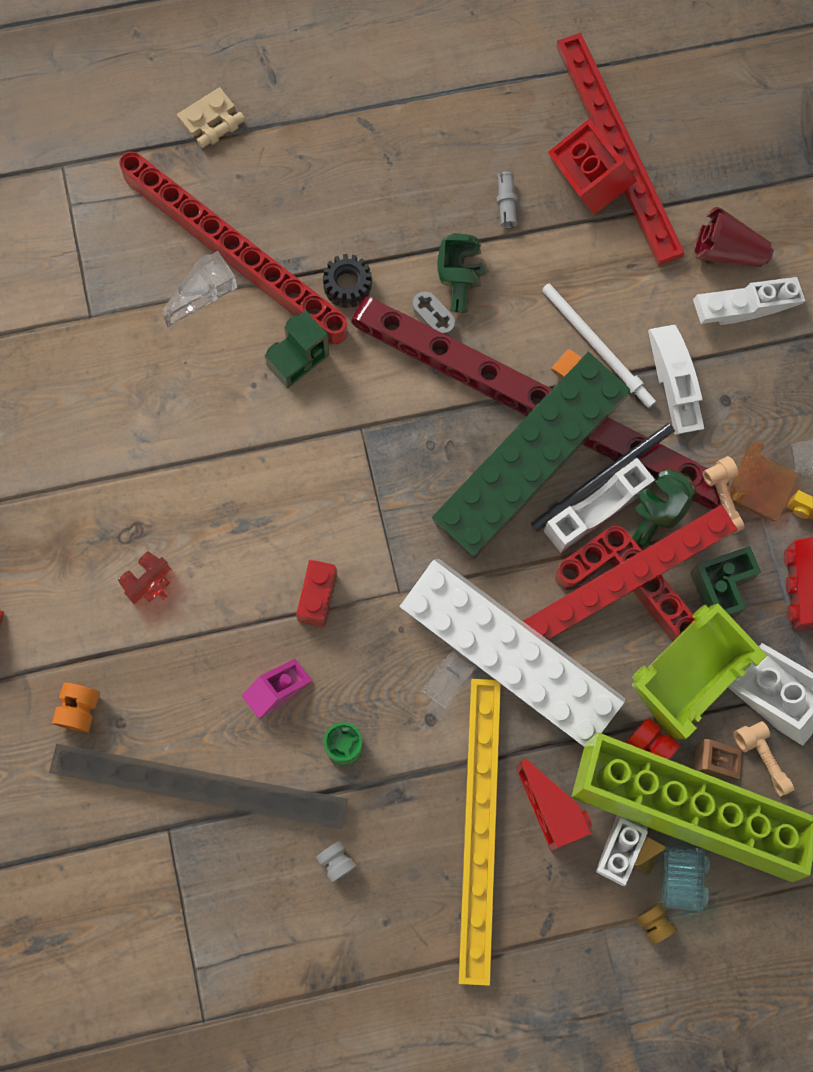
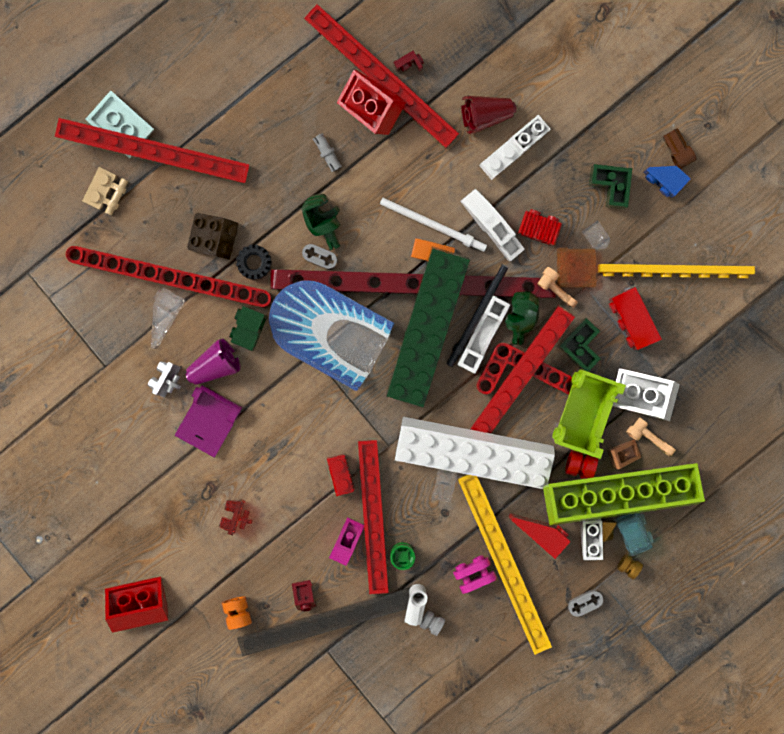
camera: 20 degrees left, 15 degrees up
(157, 365) = (167, 380): none -> light grey hips
(178, 733) = (303, 595): none -> dark red bracket
(184, 442) = (208, 420): none -> magenta door
(228, 372) = (213, 363): none -> magenta cone
(272, 54) = (119, 117): none -> light aqua plate
(295, 95) = (151, 150): none -> red plate
(315, 226) = (212, 235): none -> dark brown bracket
(325, 822) = (416, 605): none -> white piece
(329, 675) = (373, 516): none -> red plate
(401, 402) = (328, 331): none -> clear windscreen
(417, 810) = (479, 564): none -> dark pink brick
(567, 954) = (583, 598): none -> light grey beam
(660, 142) = (406, 61): none -> dark red bracket
(736, 411) = (539, 227): none -> red brick

